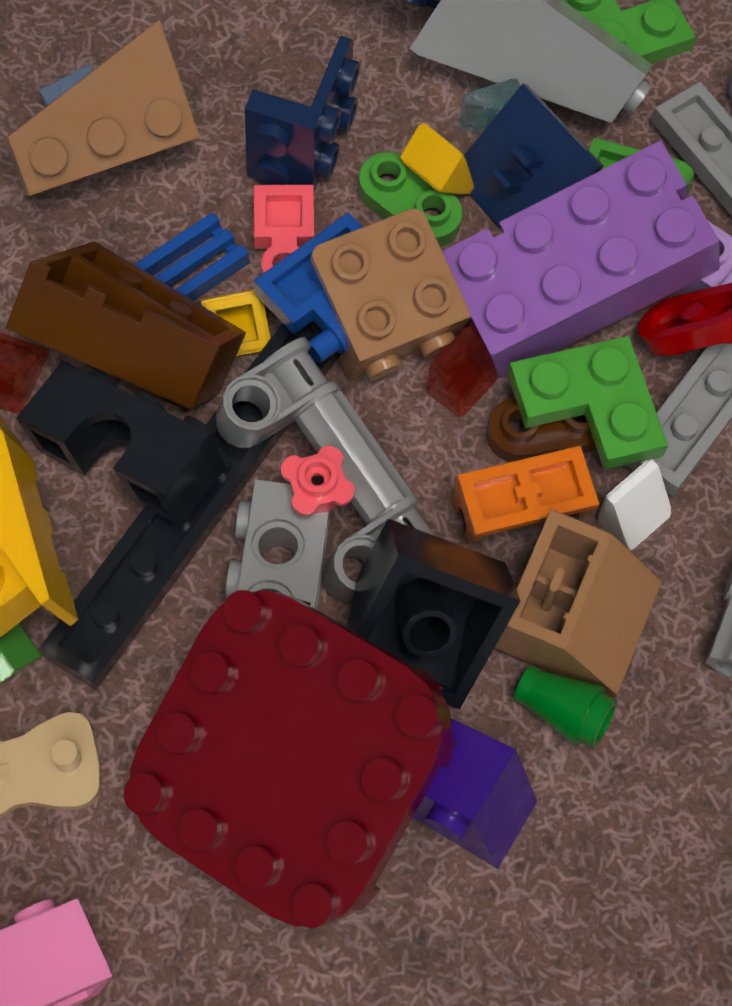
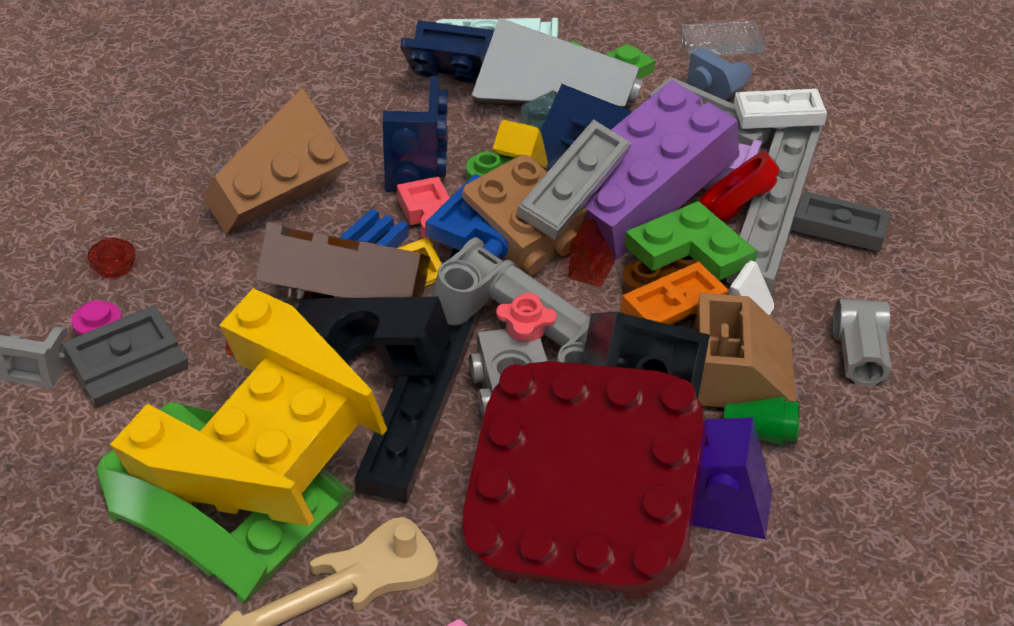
camera: 15 degrees left, 25 degrees down
(459, 279) = (573, 179): none -> light grey tile

